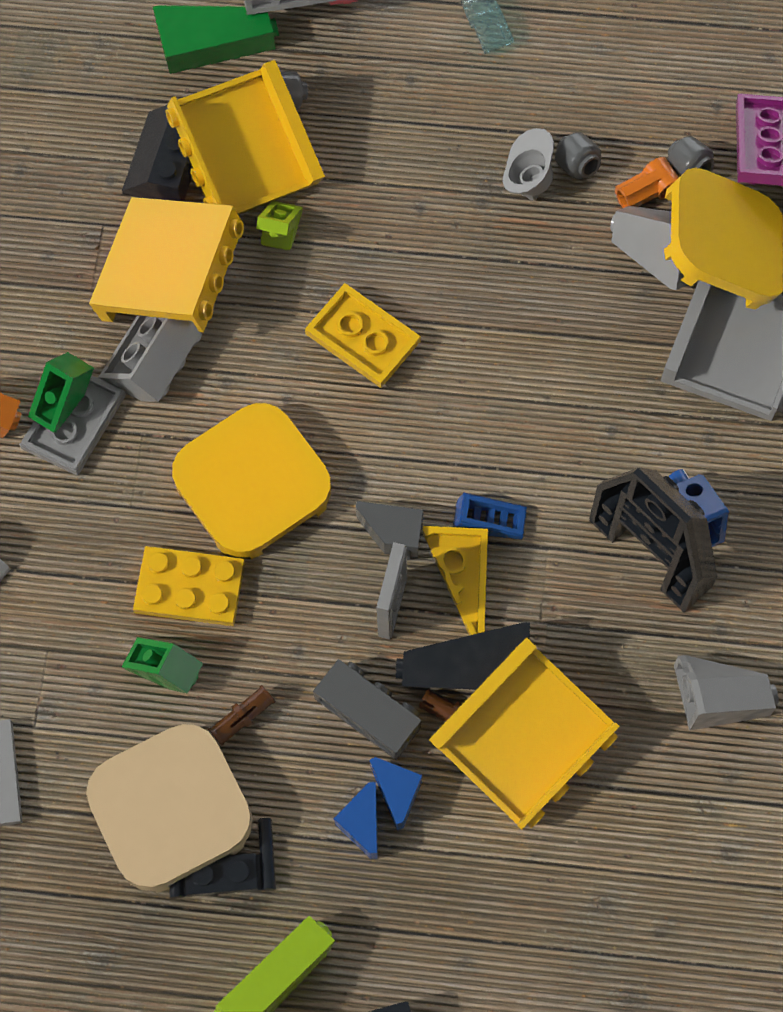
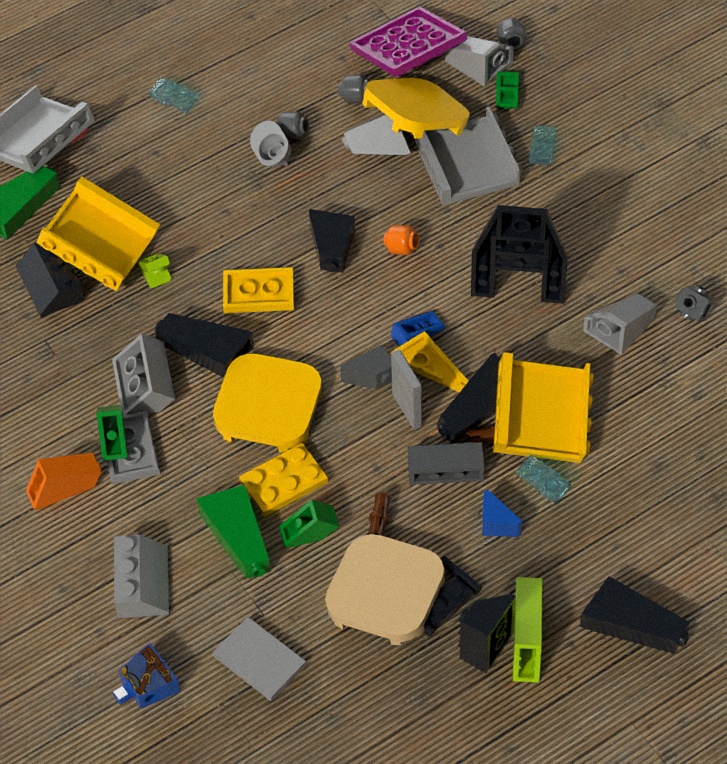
camera: 40 degrees left, 15 degrees down
(87, 608) = (236, 528): none -> green slope
(168, 261) = (111, 321): yellow panel -> none
(207, 958) = (486, 630): none -> black slope
(251, 358) = (204, 342): none -> black slope
(397, 787) = (501, 485): blue slope -> none
(453, 816) = (542, 478): none -> clear light blue slope
(494, 333) = (332, 238): none -> black slope
(568, 392) = (401, 239): none -> orange head
(647, 185) = (345, 112): orange piece -> none

